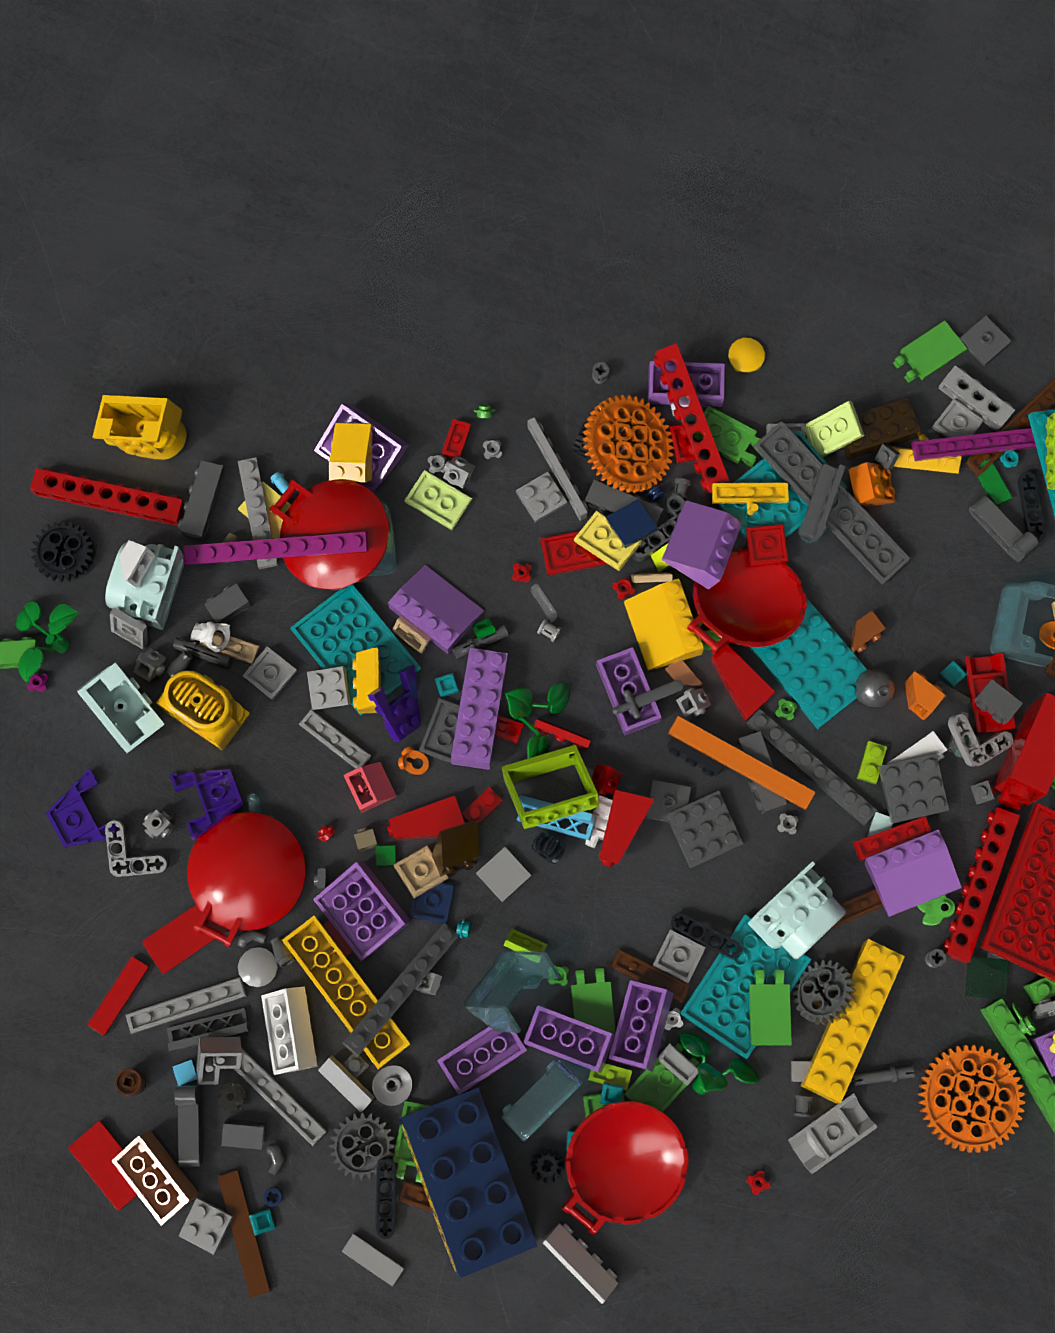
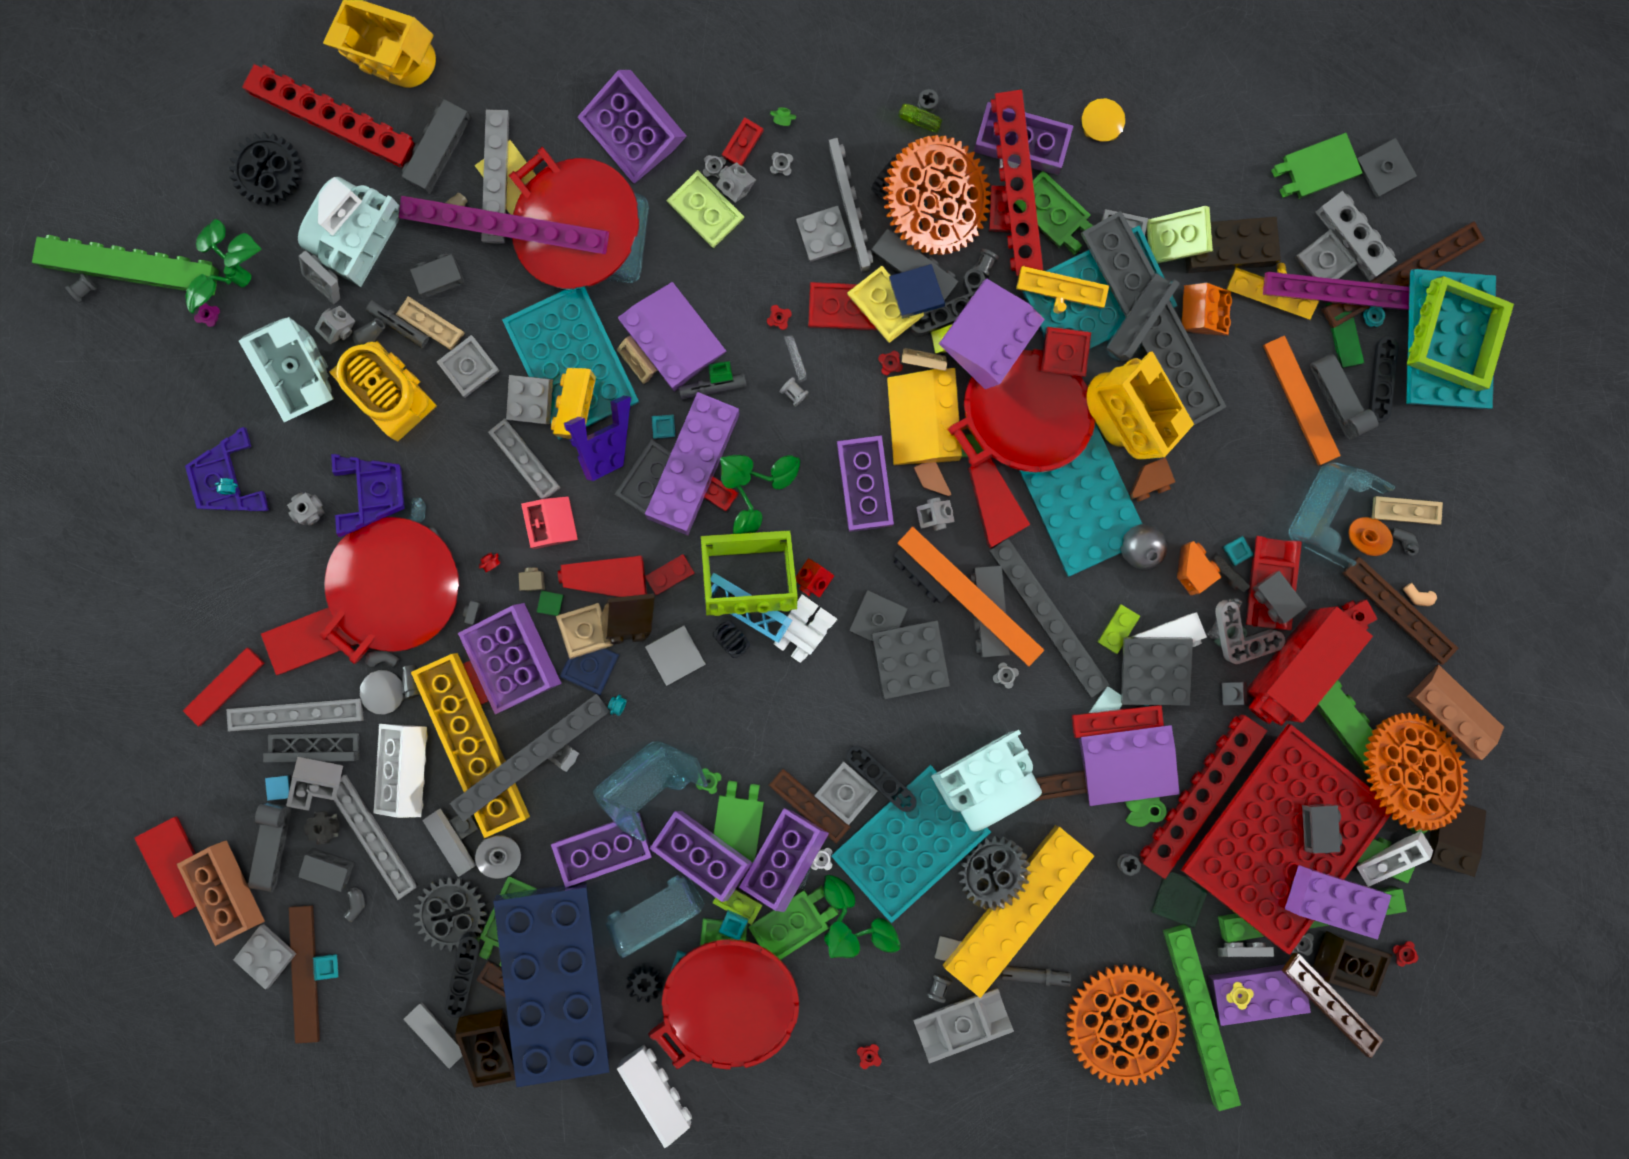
camera: 15 degrees right, 10 degrees up
(86, 821) = (226, 486): none -> teal plate
(122, 857) = (259, 535): light grey beam -> none
(130, 1082) = (215, 785): reddish brown wheel -> none
(204, 633) = (403, 303): white hair -> none
(274, 1191) = (340, 949): dark blue bush -> none
(279, 480) = (529, 145): medium azure pin -> none
(351, 452) = (617, 131): yellow slope -> none
(404, 764) = (594, 505): orange piece -> none
(422, 1259) = (486, 1047): none -> dark brown slope
(521, 942) = (679, 738): lime plate -> none
(562, 734) = (779, 513): red plate -> none
(597, 386) = (920, 117): none -> clear neon green piece
(623, 822) = (820, 632): red slope -> none
(646, 698) = (866, 500): dark grey sword -> none
(656, 493) = (955, 260): dark blue bush -> none
(678, 1064) = (814, 911): light grey tile -> none
(769, 1011) = (929, 878): bright green tile -> none
(791, 706) = (1044, 545): bright green plate -> none
(838, 575) = (1138, 408): none -> yellow brick
(887, 456) = (1233, 281): dark grey plate -> none
(970, 540) = (1301, 400): none -> orange tile
(1026, 1023) = (1208, 962): bright green plate -> none

